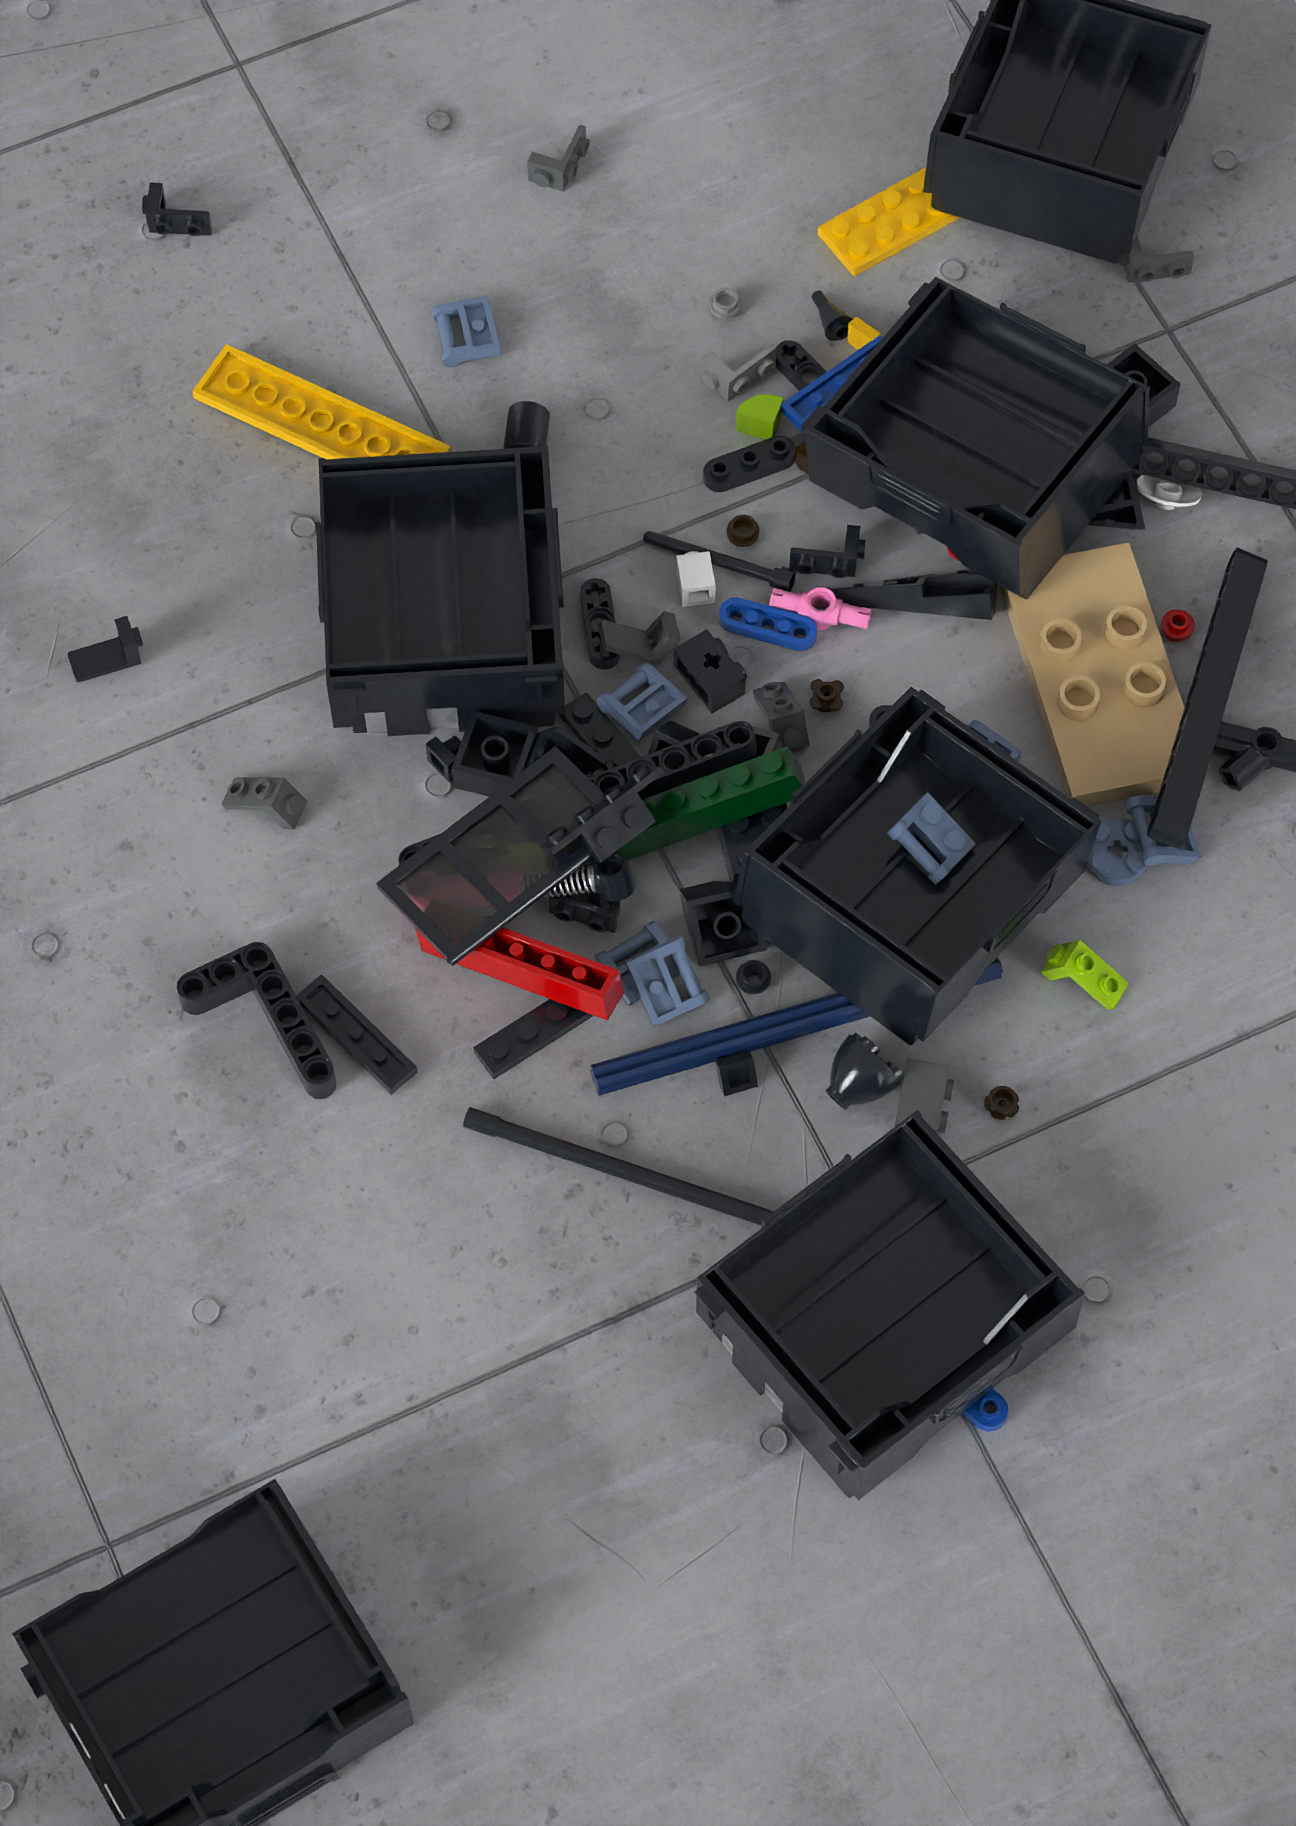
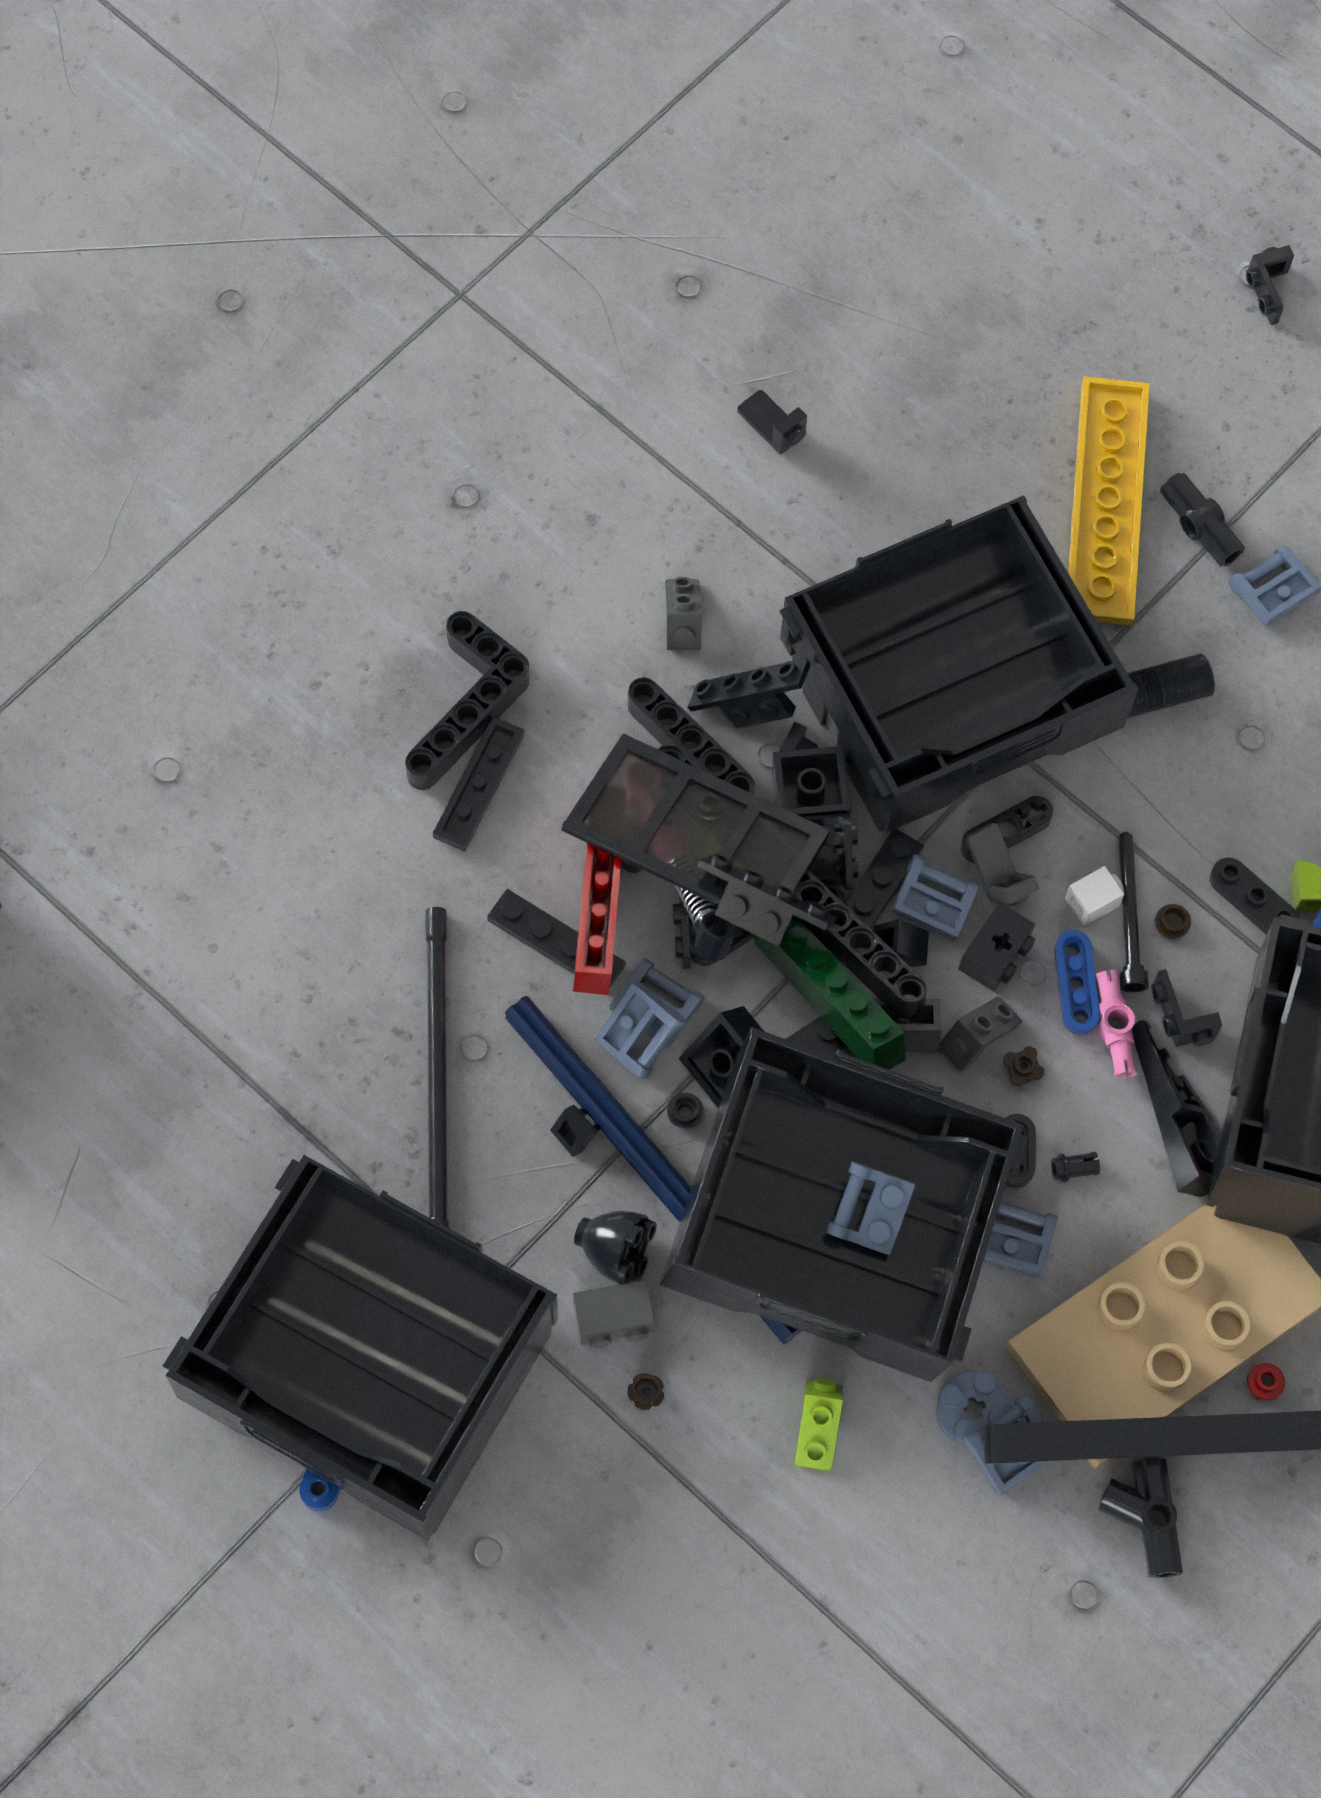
camera: 65 degrees right, 5 degrees up
(377, 358) = (1202, 519): none -> black piece
(384, 764) = (753, 695): none -> black bracket
(384, 839) = (682, 731): none -> black beam
(936, 686) = (1074, 1166): none -> black pin

